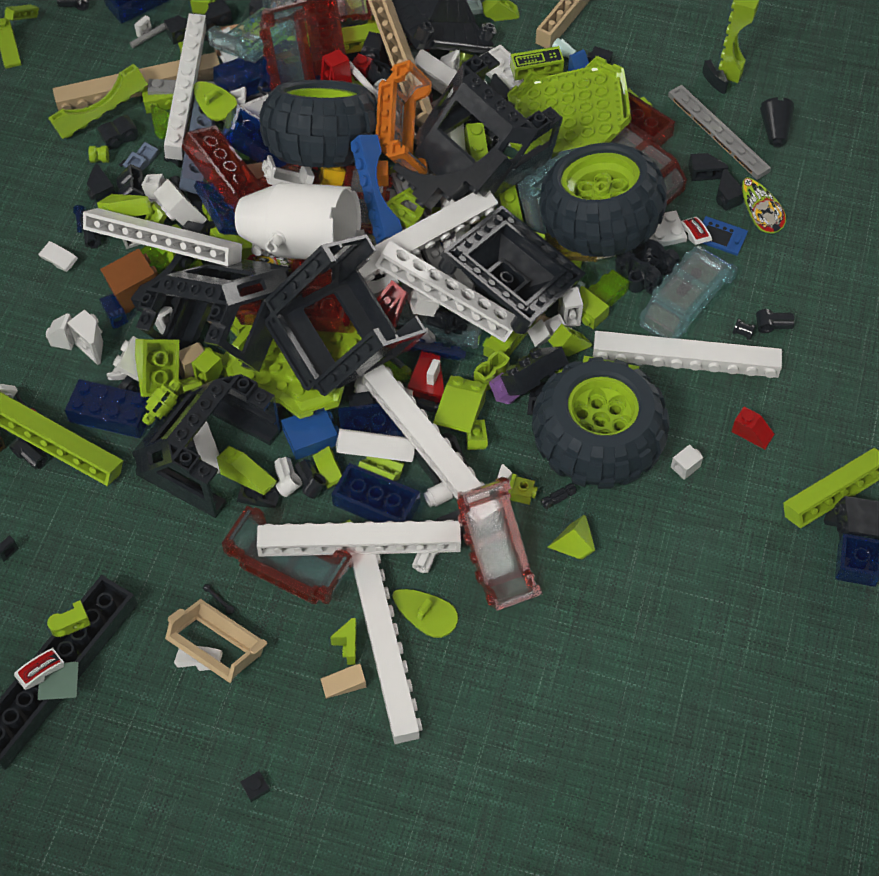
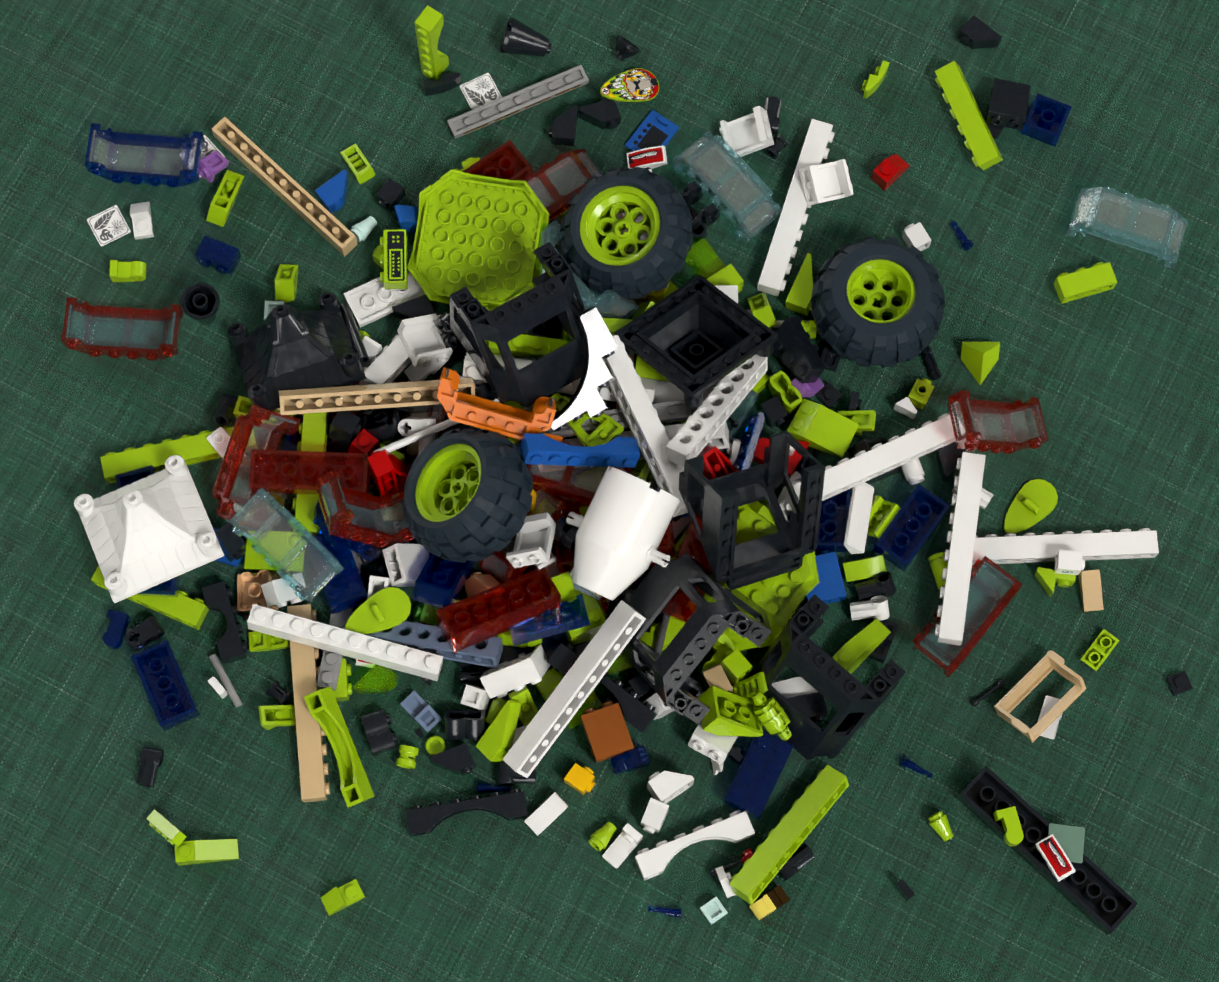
camera: 80 degrees left, 15 degrees up
(21, 344) = (732, 829): none -> white arch
(35, 318) = (622, 846): none -> white bracket
(40, 300) = (602, 836): none -> lime cone
(60, 226) = (426, 819): none -> black arch
(75, 572) = (941, 825): none -> lime cone
(90, 275) = (580, 779): none -> yellow brick
(112, 173) = (435, 745): none -> lime tile
(120, 58) = (277, 716): none -> lime slope
(136, 535) = (913, 766): none -> clear blue piece
(146, 61) = (278, 693): none -> black bush
(279, 699) = (1099, 649): none -> lime slope
(362, 642) = (1069, 562): none -> white brick
(467, 365) = (775, 412): none -> black brick
(496, 432) = (855, 402): none -> black plate
(500, 414) = (829, 396): none -> black plate
(590, 24) = (333, 192): none -> blue slope
(620, 38) = (363, 173): none -> lime slope
(687, 626) = (1085, 282): none -> lime brick
(696, 510) = (966, 244): none -> clear blue piece
(717, 369) = (826, 182): none -> white panel
(721, 107) = (480, 91): none -> white sticker
(746, 300) = (748, 132): none -> white panel
(766, 662) = (1129, 222): none -> windscreen
(801, 198) = (625, 48): none -> black piece
(840, 399) = (874, 81): none -> lime slope

